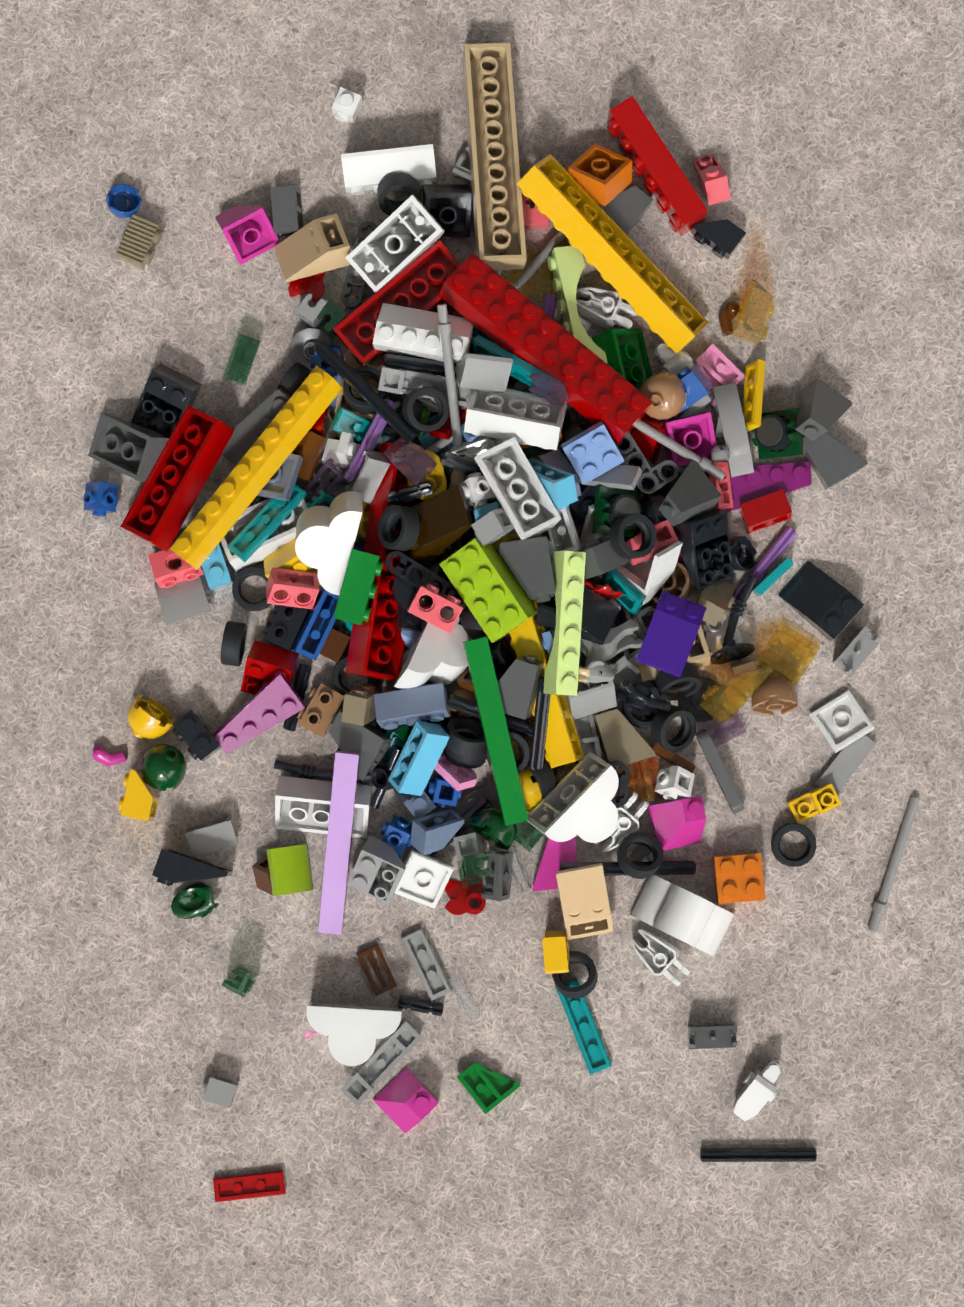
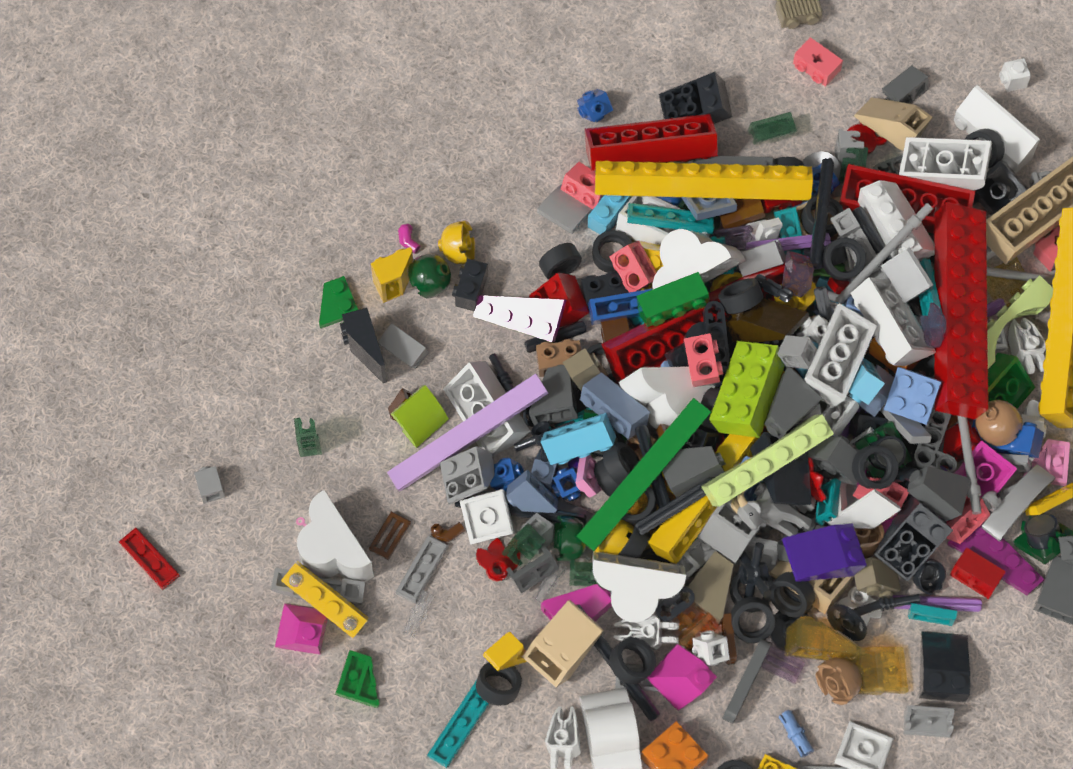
camera: 50 degrees right, 20 degrees down
(125, 862) = (335, 301): none -> green wing
(126, 446) = (645, 96): dark grey slope -> none
(191, 266) = (817, 62): none -> coral brick
(194, 901) = (342, 368): dark green hat -> none
(247, 231) = (867, 72): dark pink slope -> none
(399, 1068) = (325, 599): none -> yellow piece
(410, 922) = (445, 534): none -> reddish brown arm
(420, 1005) = (386, 587): black axle -> none
(788, 764) = (796, 733): none -> medium blue pin

